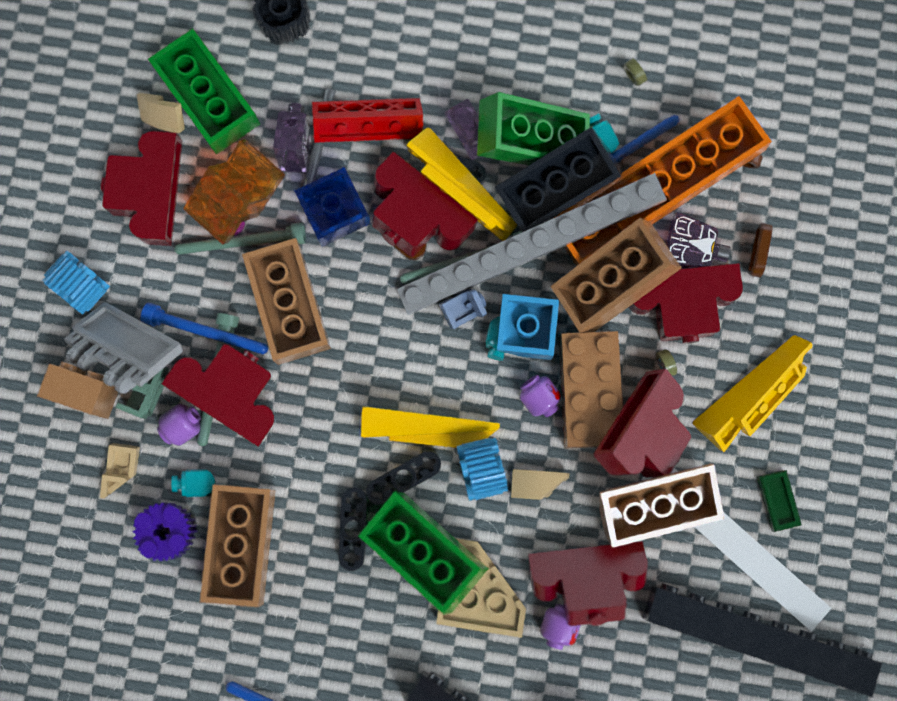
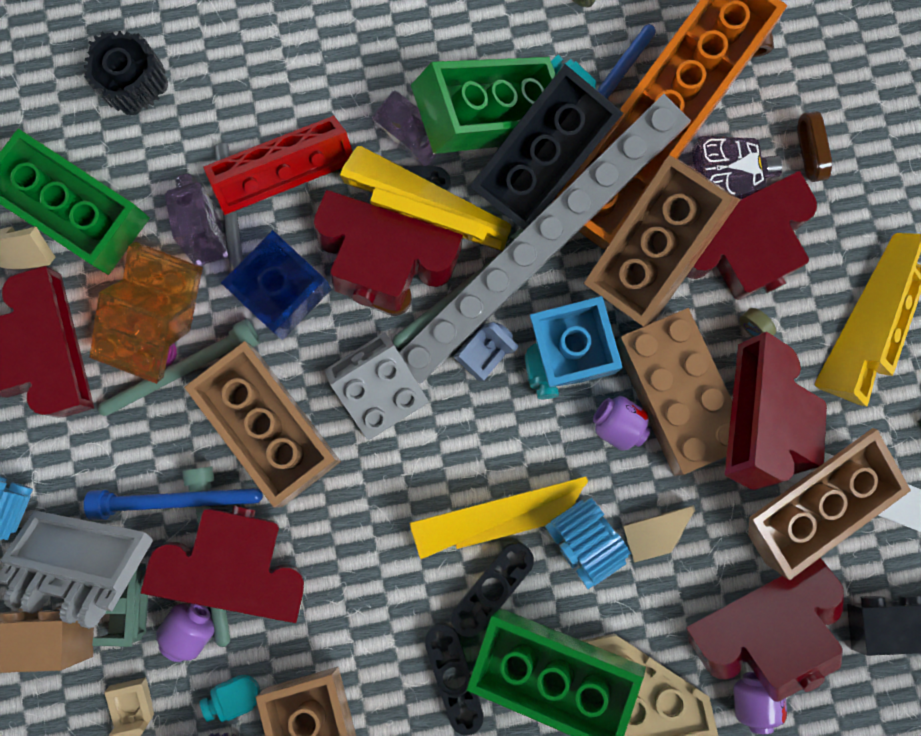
camera: 20 degrees left, 0 degrees up
(375, 304) = (376, 386): none -> light grey bracket

